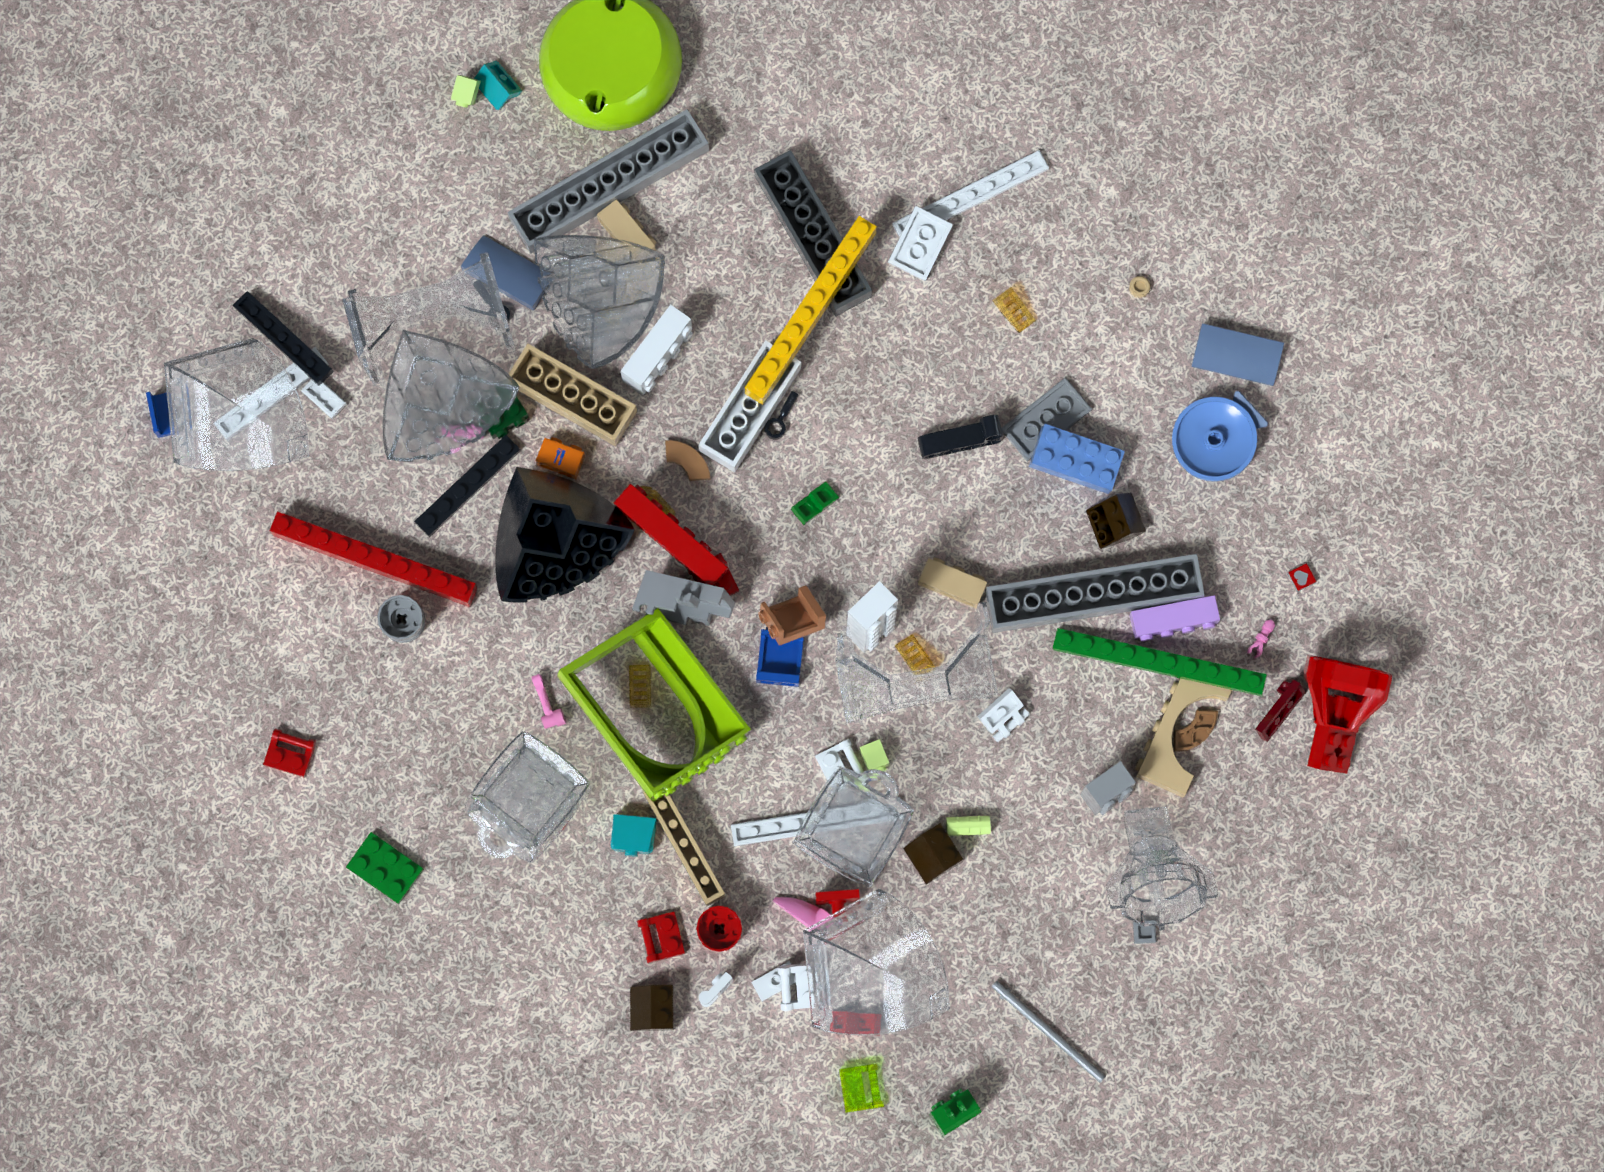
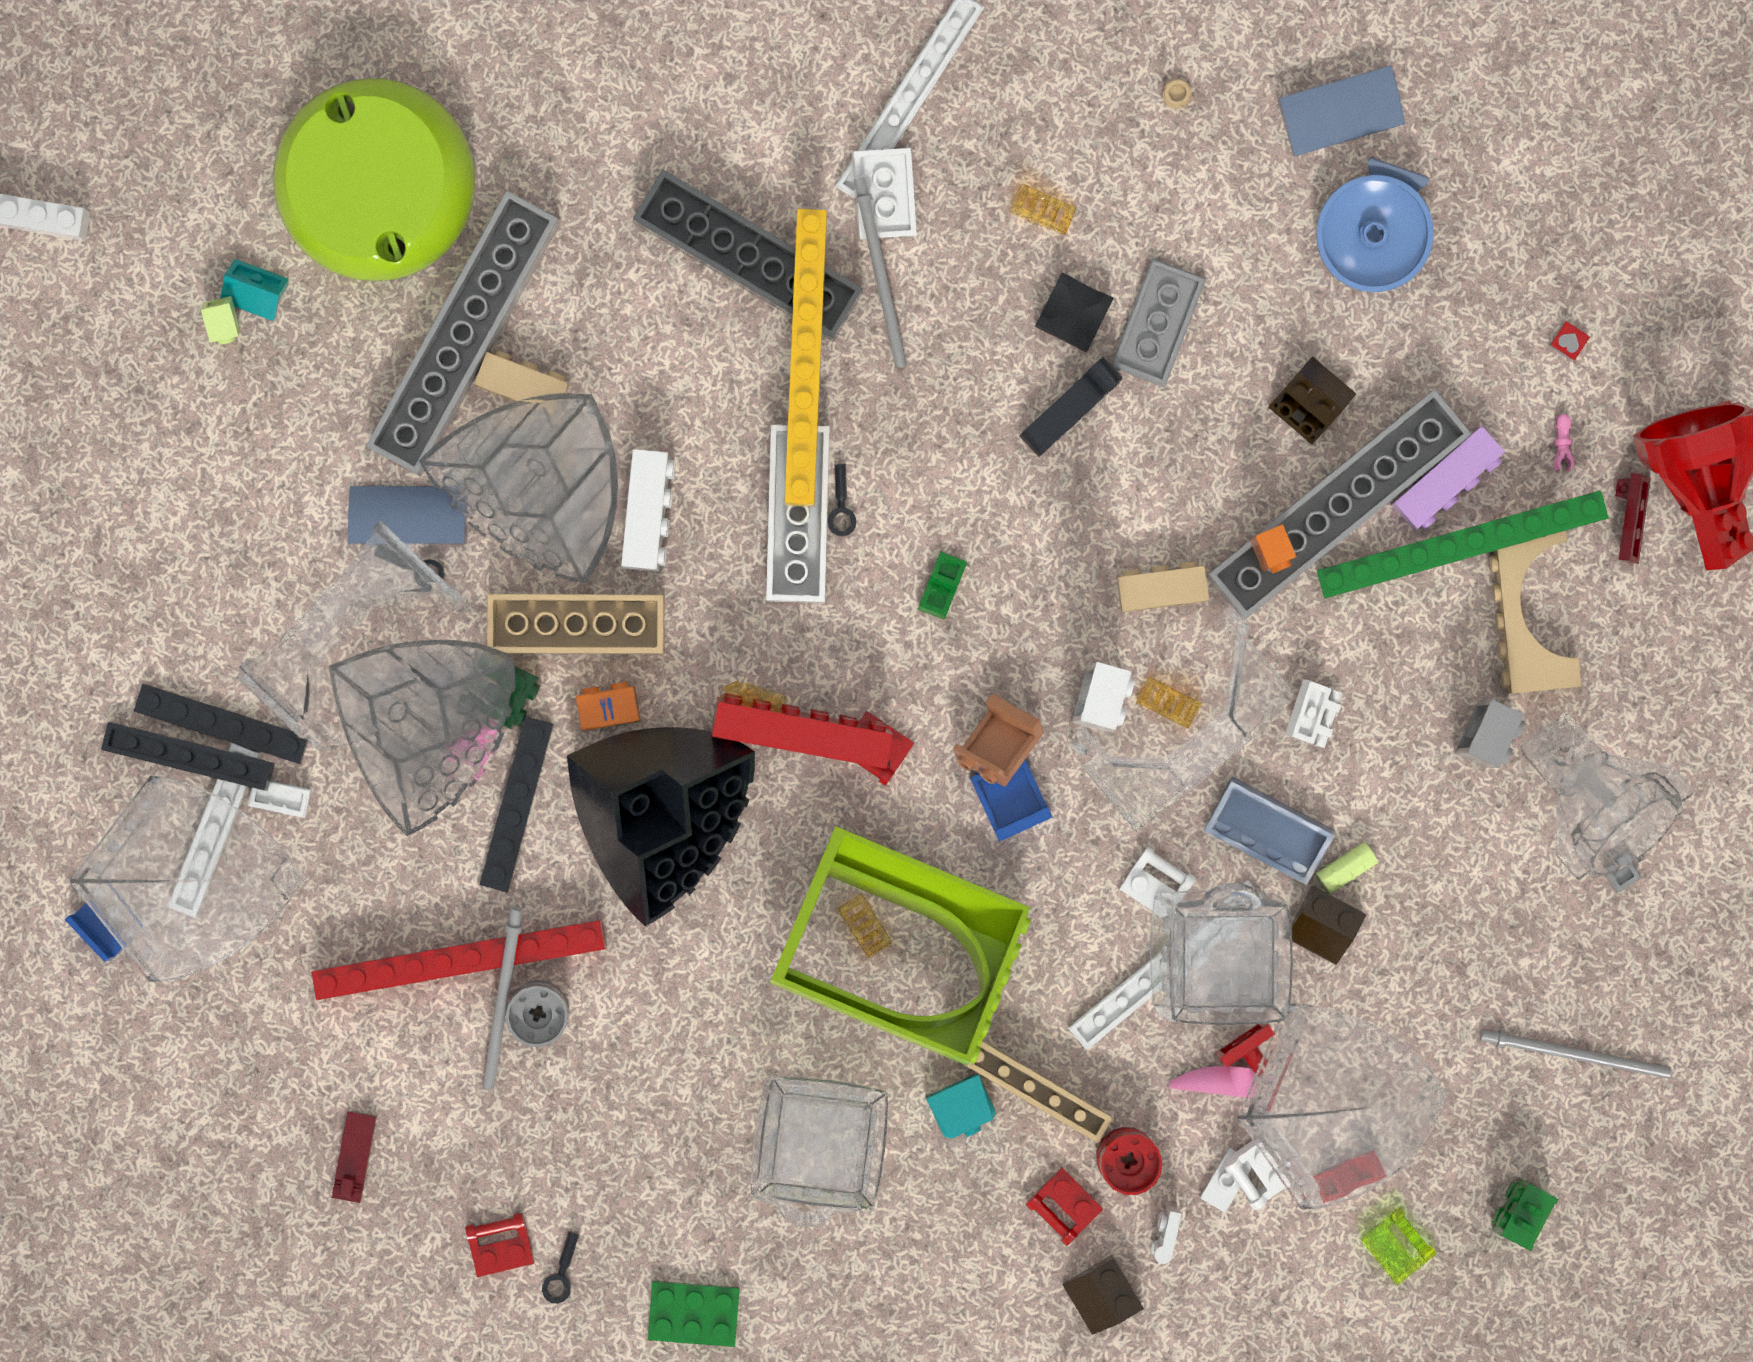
camera: 30 degrees left, 10 degrees up
(232, 645) = (354, 1156): none -> dark red hinge
(316, 333) = (220, 723): none -> black plate
(322, 788) = (564, 1263): none -> black piece
(418, 554) = (513, 929): none -> light grey bar
(551, 717) = (783, 1024): bright pink brick -> none
(682, 599) = (854, 800): light grey piece -> none
(688, 459) = (760, 619): medium nougat tile -> none
(874, 756) = (1191, 851): yellowish green brick -> none
(904, 238) = (863, 199): none -> light grey bar
(932, 774) = (1269, 830): none -> sand blue slope
(996, 382) = (1074, 312): none -> black brick
(1035, 590) = (1273, 549): none -> orange brick
(1076, 458) = (1224, 353): medium blue brick -> none
(1196, 732) = (1548, 601): medium nougat tile -> none

